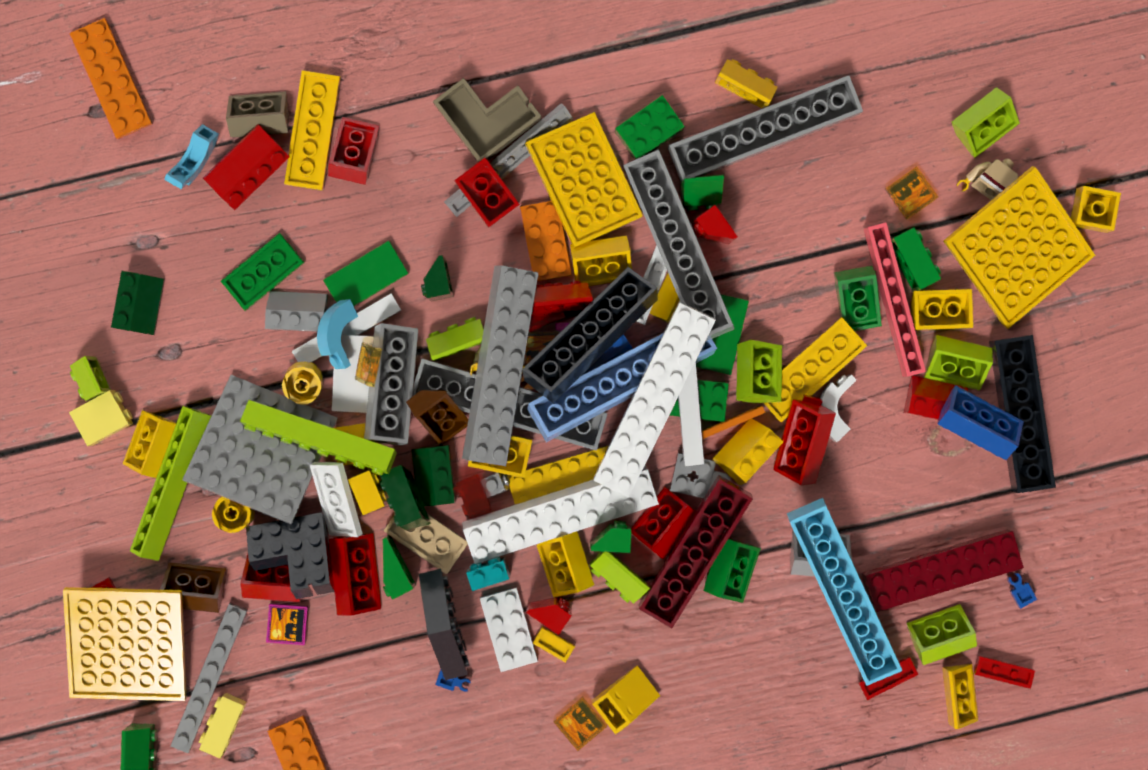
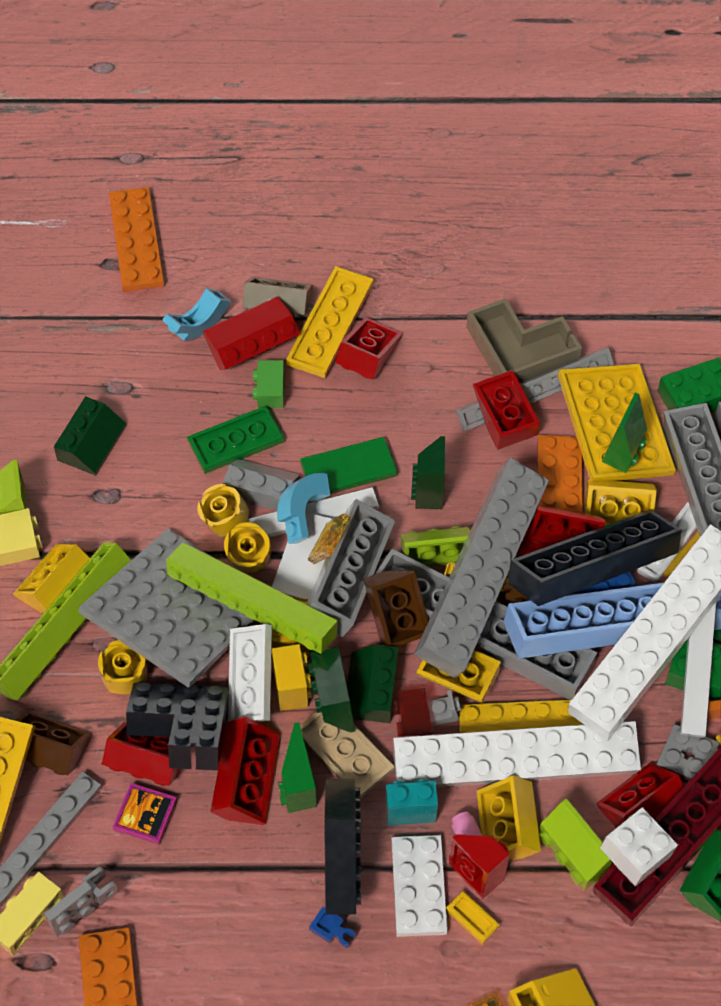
camera: 15 degrees right, 30 degrees down
(268, 703) = (80, 902): none -> light grey plate
(276, 211) = (270, 383): none -> bright green brick
(282, 355) = (222, 509): none -> yellow brick
(535, 580) = (465, 824): none -> bright pink brick
(596, 208) = (627, 438): none -> green slope
(613, 538) = (581, 788): green slope -> none
(667, 580) = (638, 846): none -> white brick

